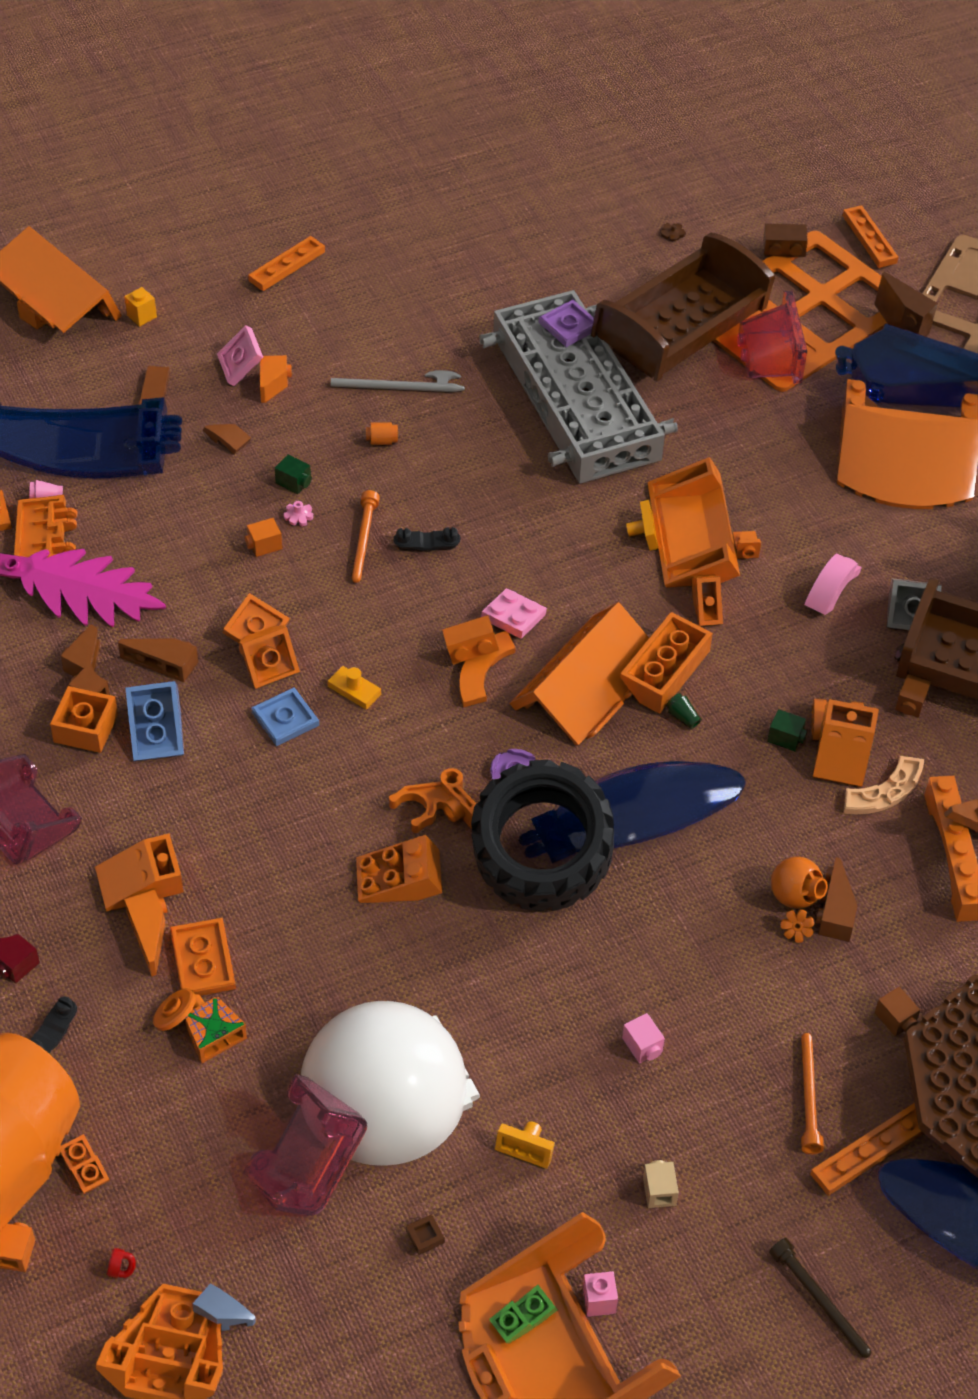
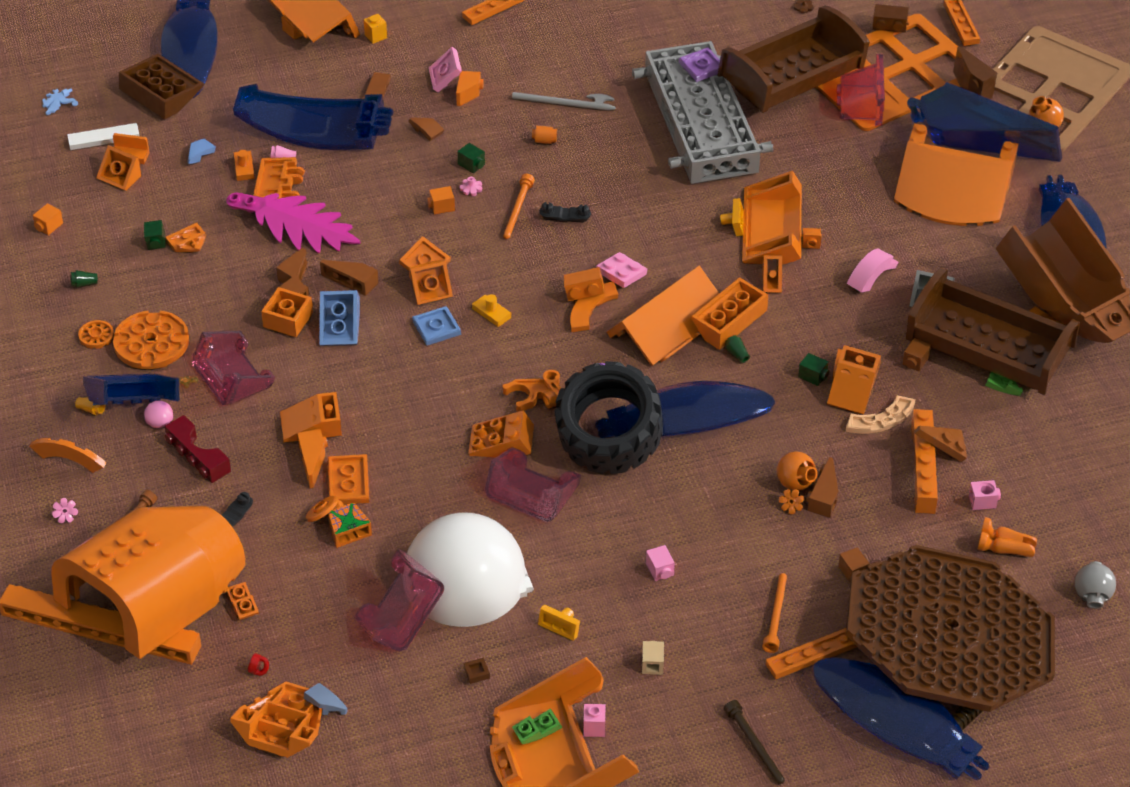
camera: 10 degrees right, 5 degrees down
(449, 946) = (527, 490): none -> clear pink windscreen

